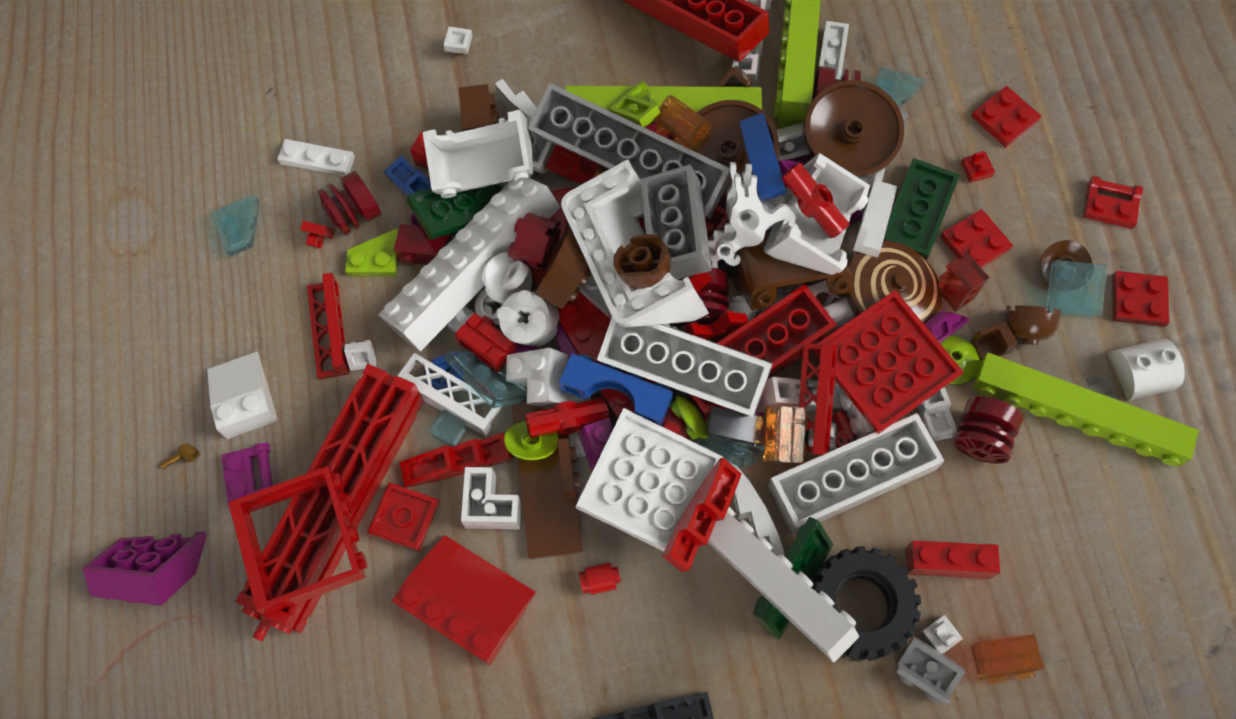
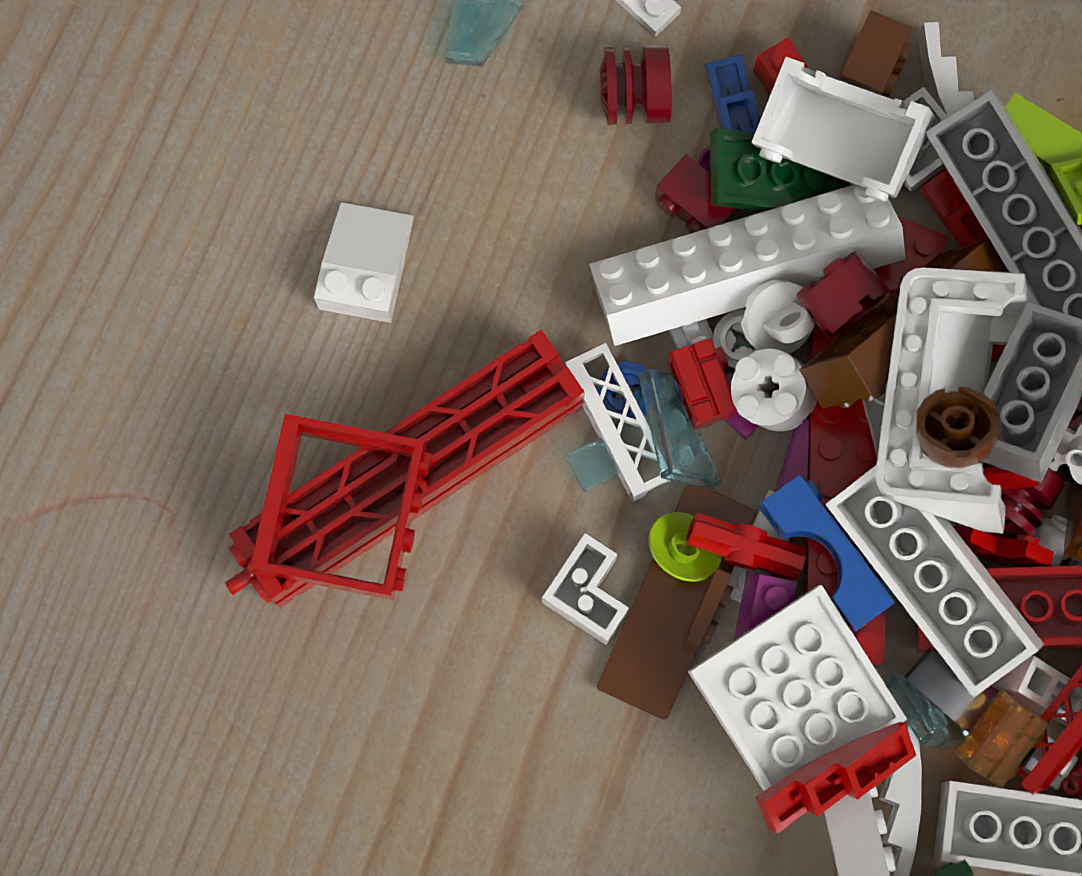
camera: 30 degrees right, 10 degrees up
(144, 568) = (143, 418): magenta wedge -> none
(185, 451) = (263, 298): pearl gold hand -> none
(240, 473) = (309, 371): magenta plate -> none
(316, 233) = (574, 98): red tile -> none
(334, 327) = (529, 237): red fence -> none
(359, 355) = (537, 301): white tile -> none
(373, 257) = (628, 174): lime wing -> none
(403, 516) = (476, 542): red plate -> none
(451, 461) = (577, 510): red slope -> none
(464, 598) = (493, 688): red slope -> none
(540, 373) = (750, 471): white brick -> none
(599, 578) = (666, 767): red brick -> none
(692, 416) = (900, 641): lime dish -> none

